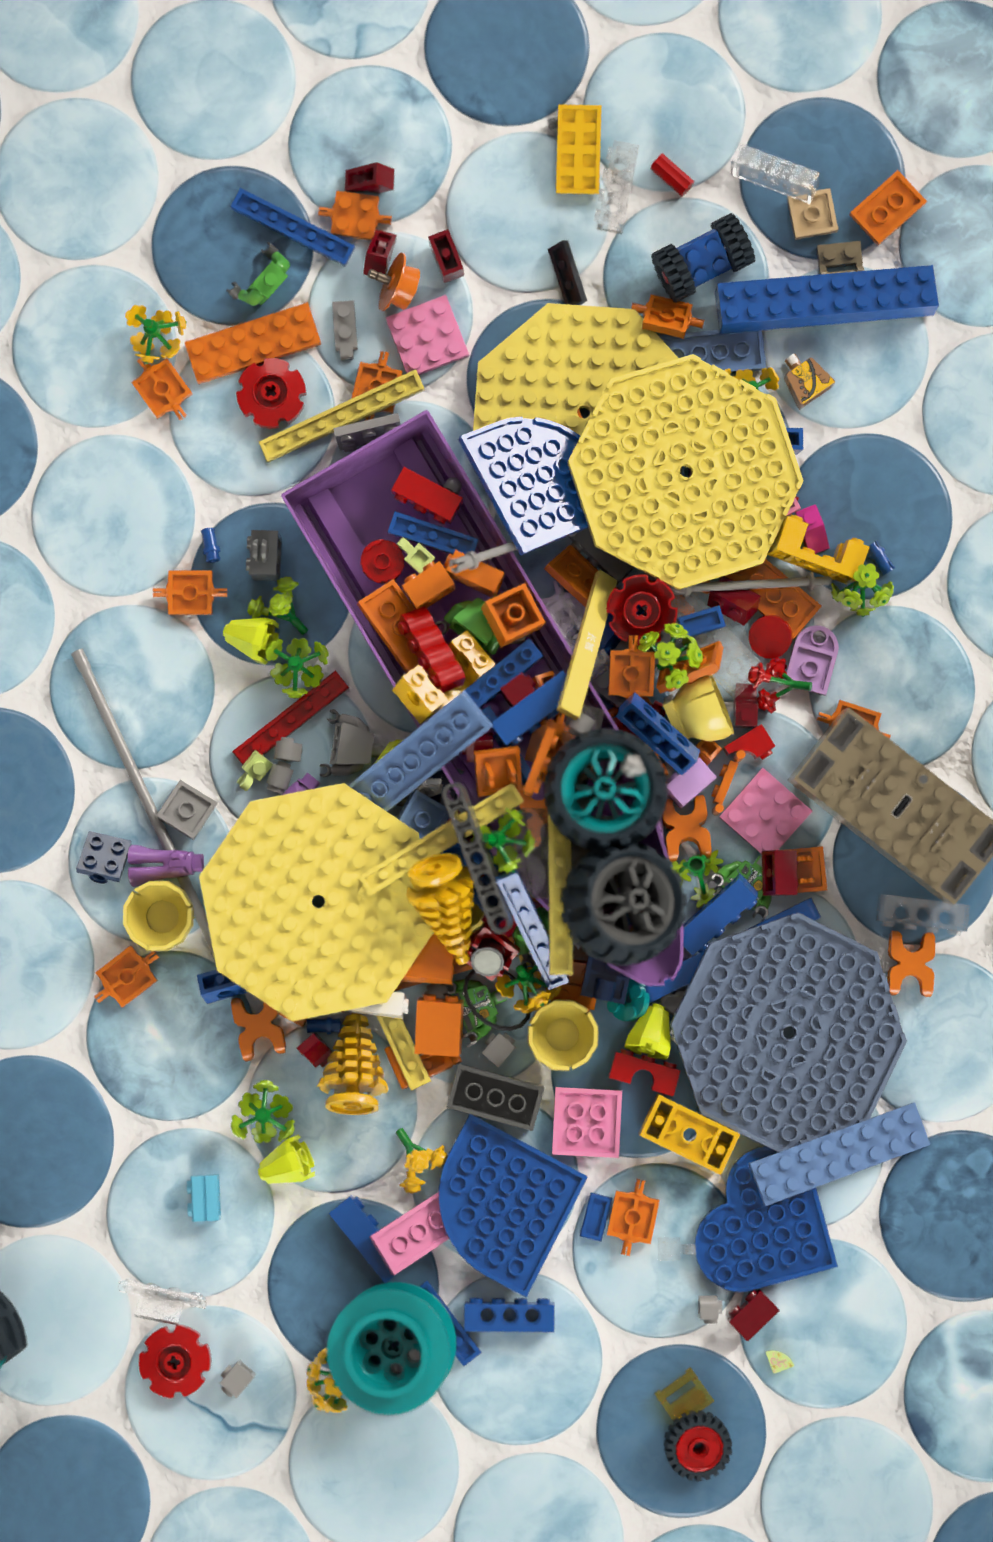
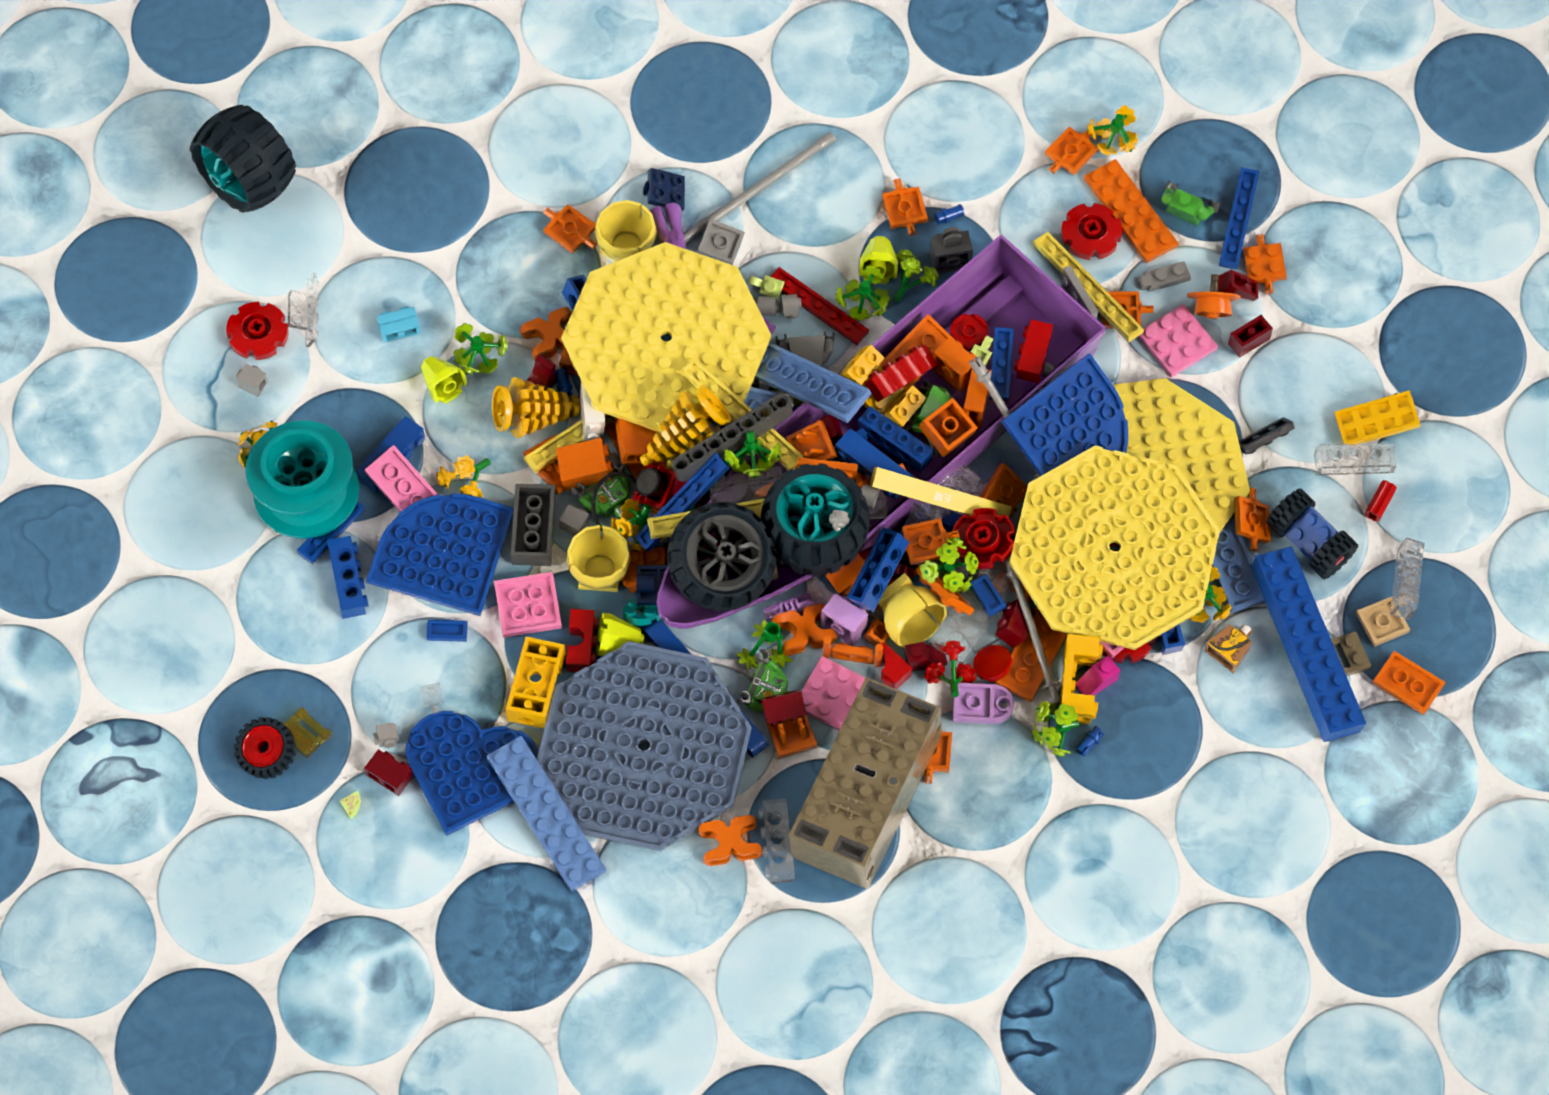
camera: 70 degrees right, 20 degrees down
(369, 178) = (1299, 266): dark red arch -> none
(517, 689) = (888, 446): dark red brick -> none
(633, 1217) = (453, 658): orange plate -> none
(717, 913) = (735, 664): blue brick -> none

